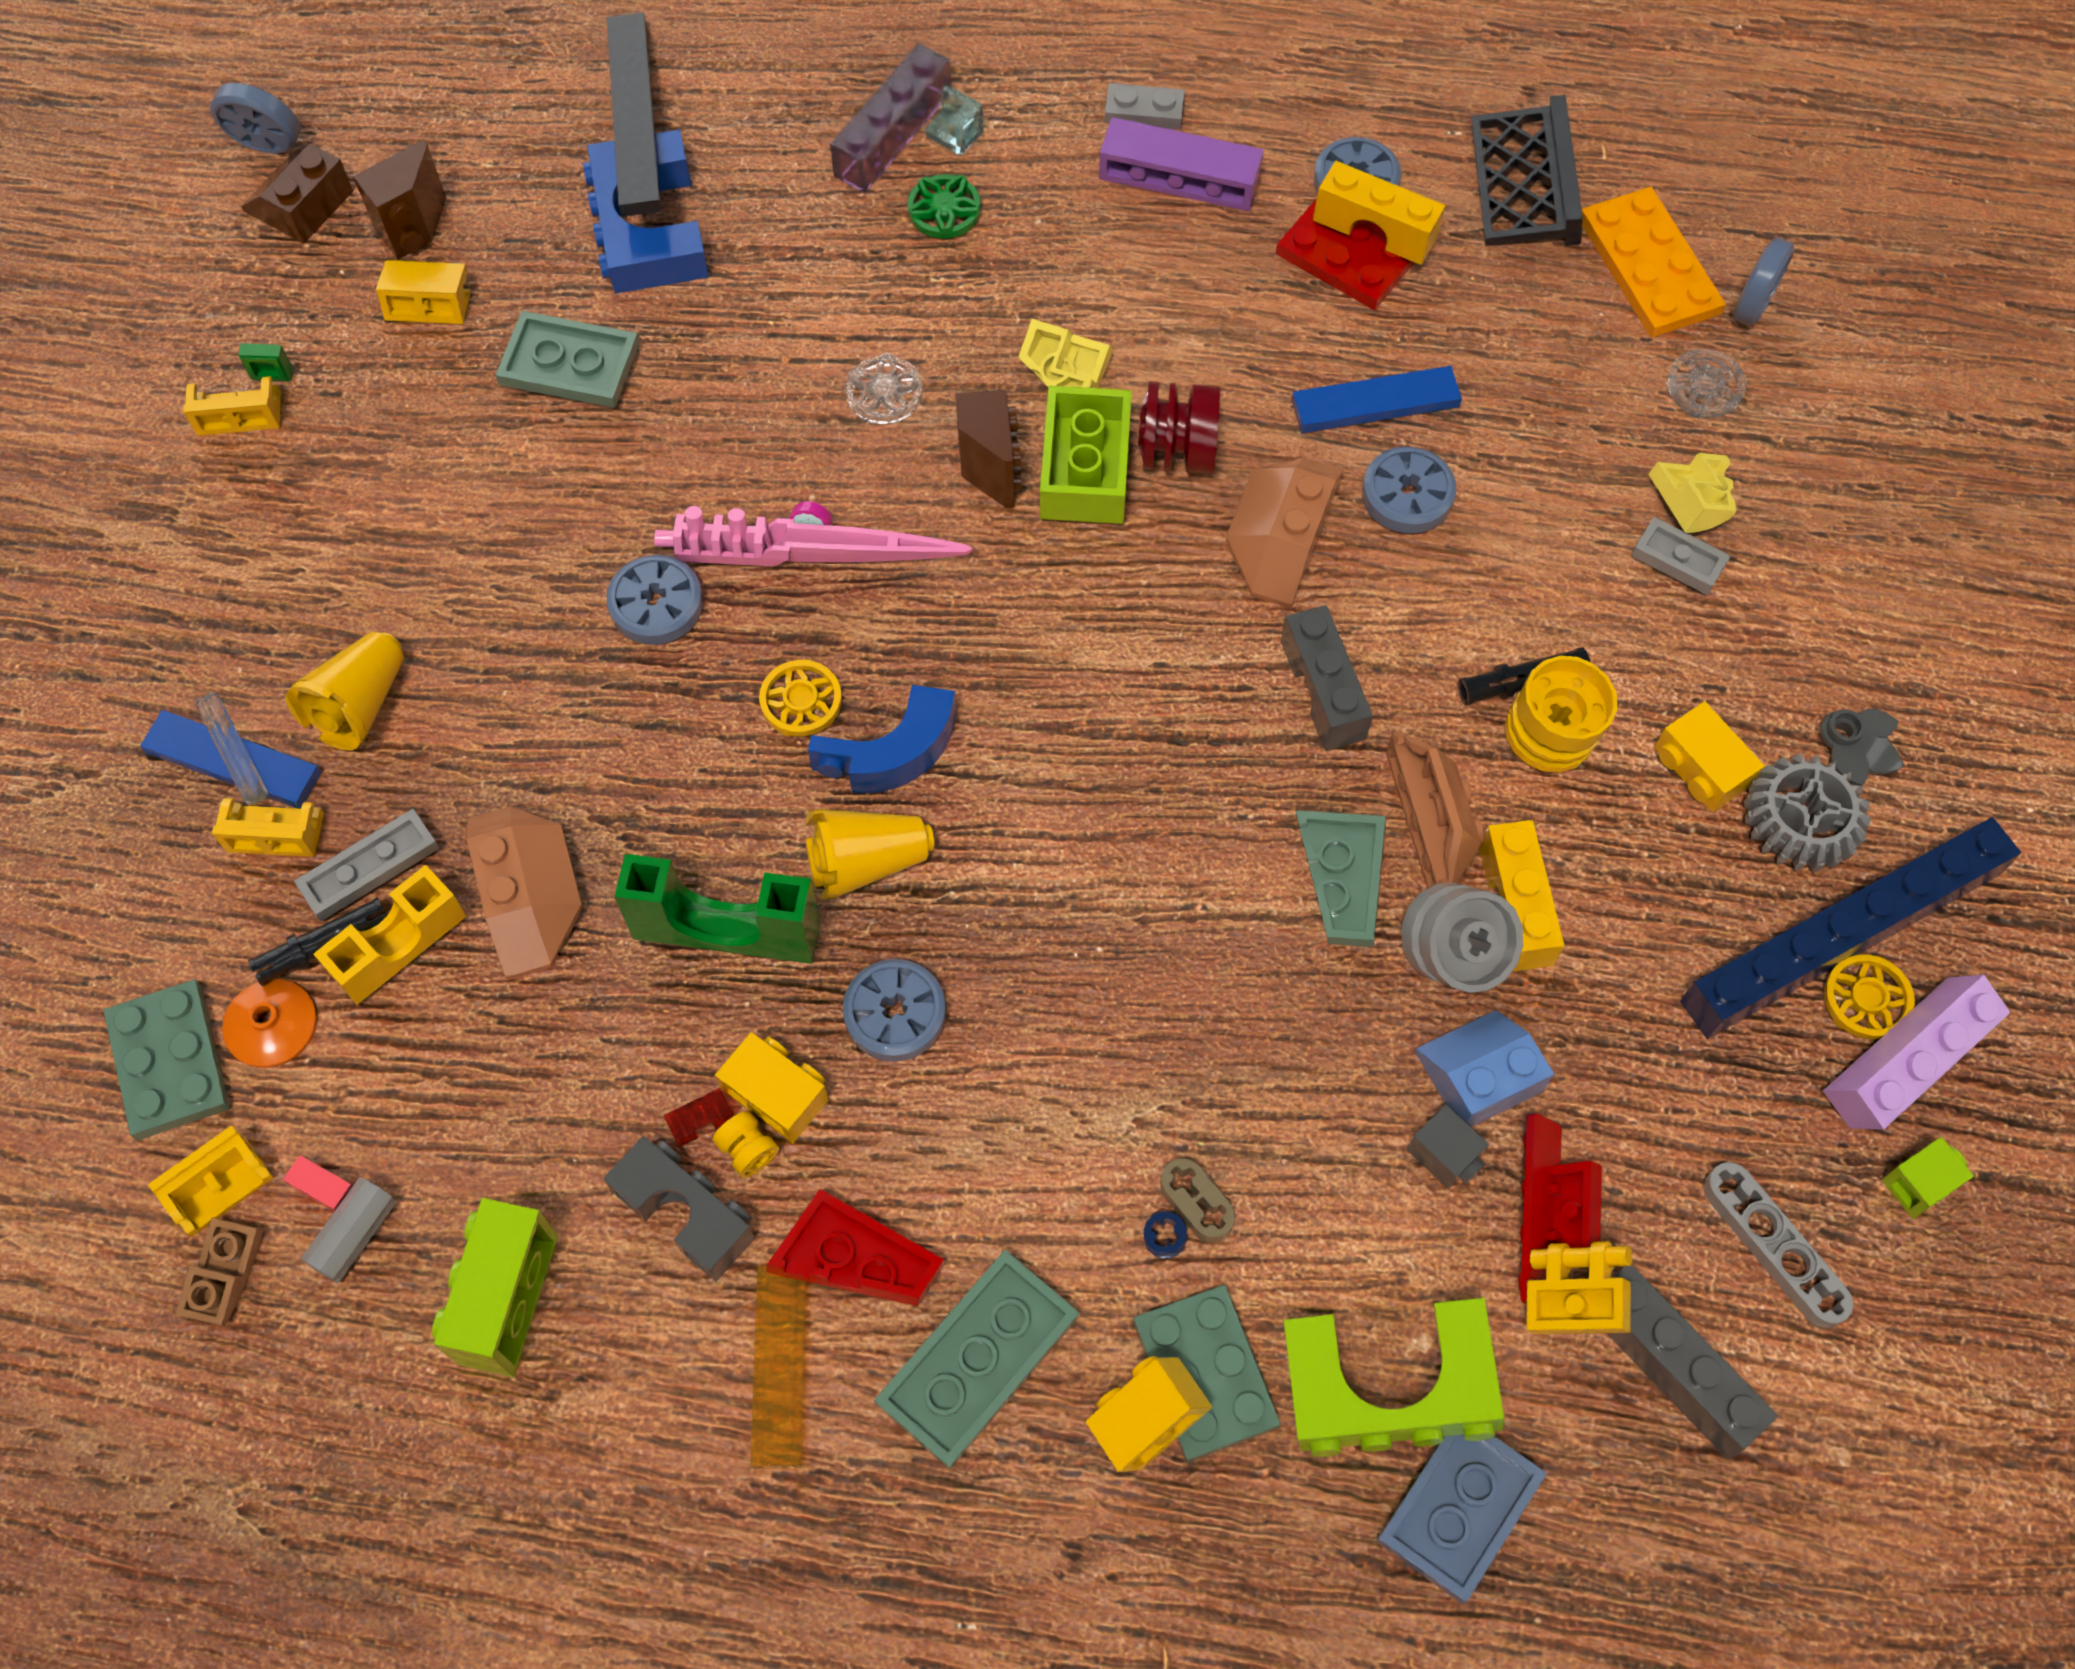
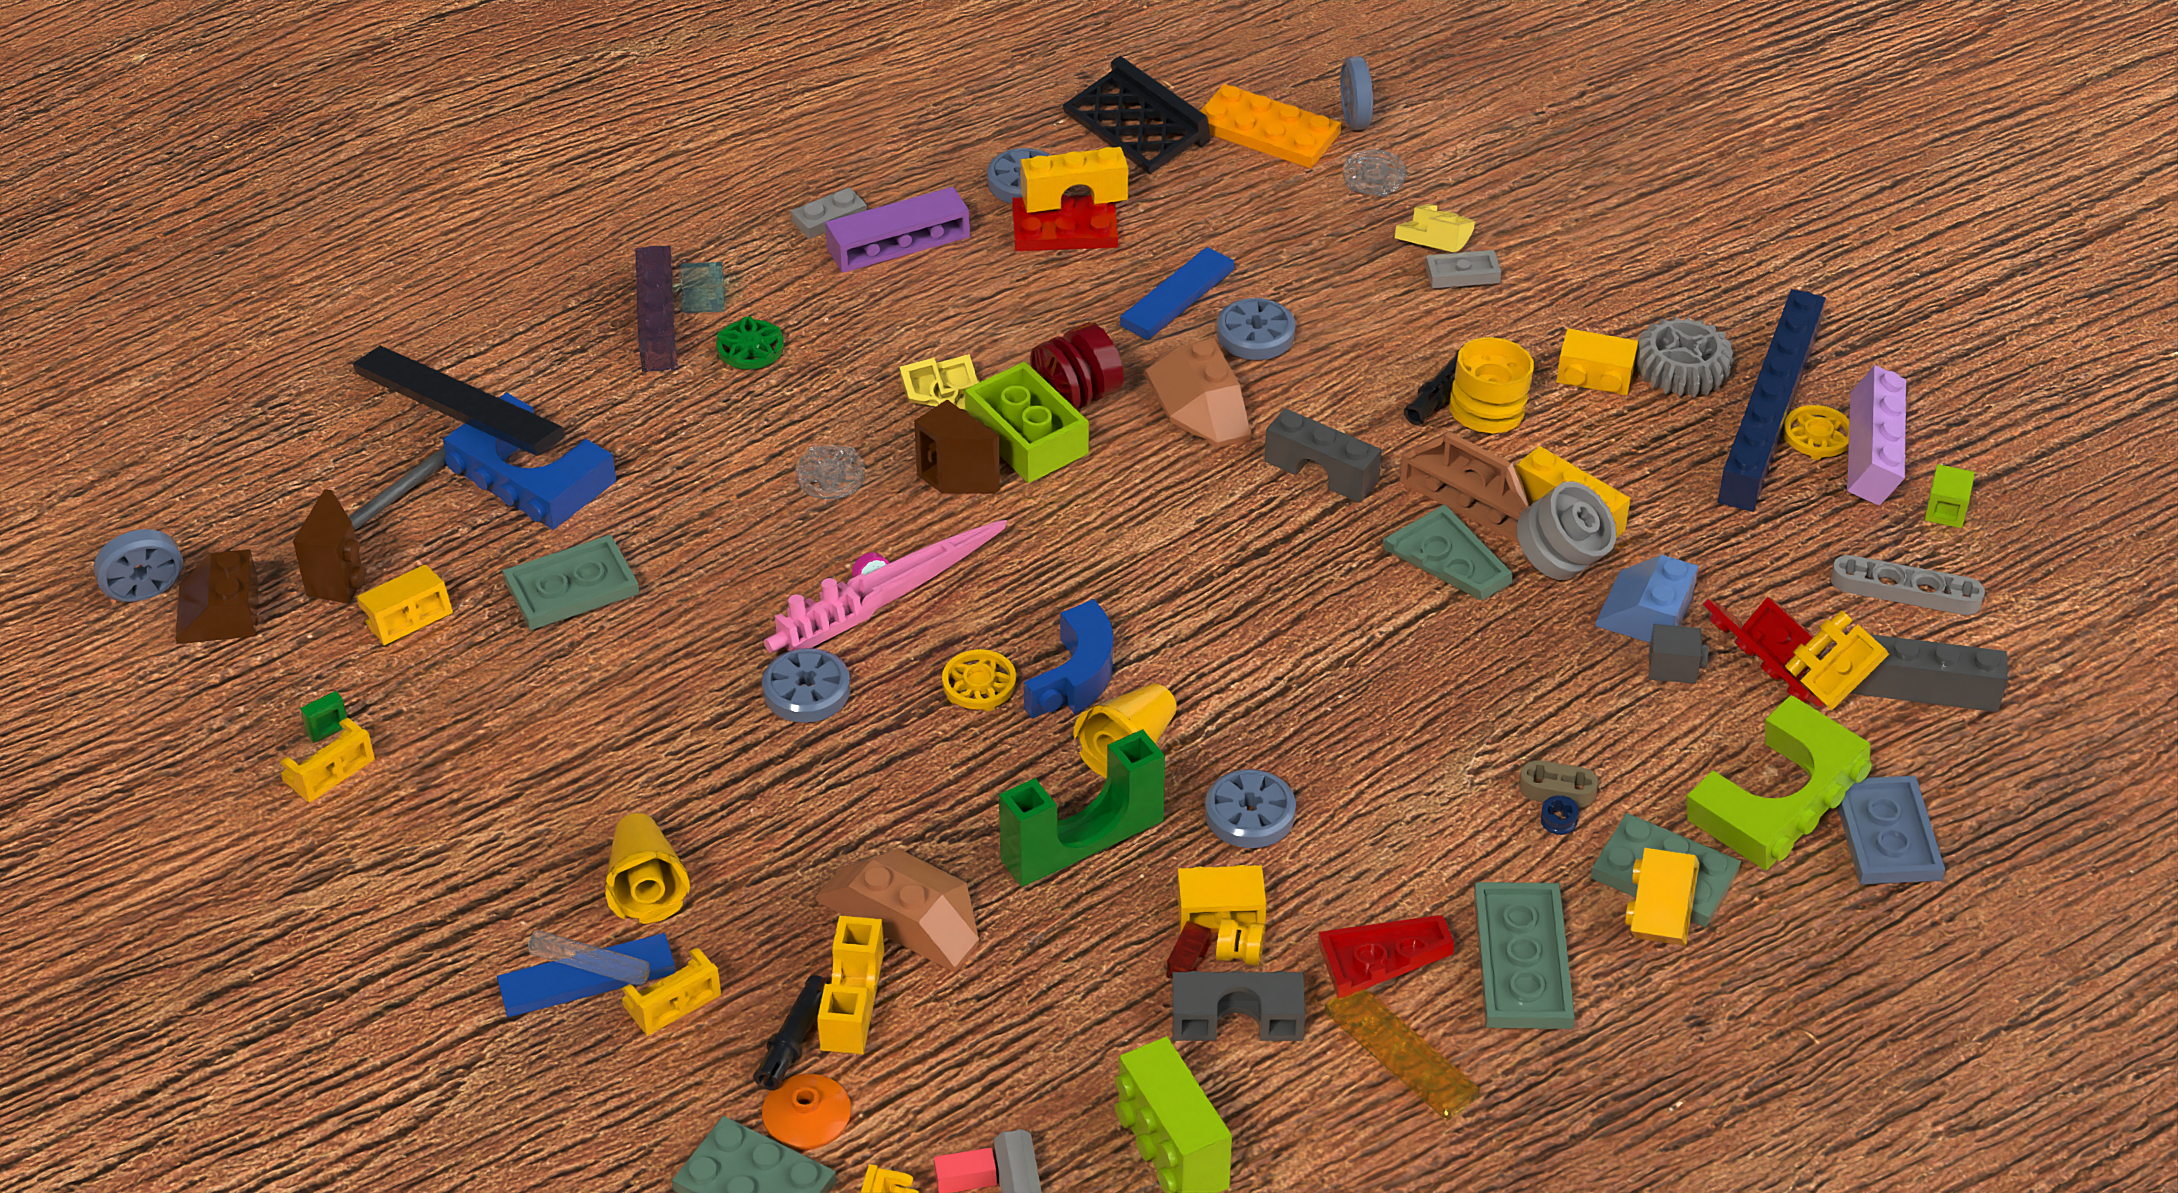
camera: 40 degrees left, 20 degrees down
(366, 865) = (775, 966): light grey plate -> none
(523, 171) = (398, 489): none -> dark grey bar
(1866, 745) = (1669, 301): dark grey plate -> none

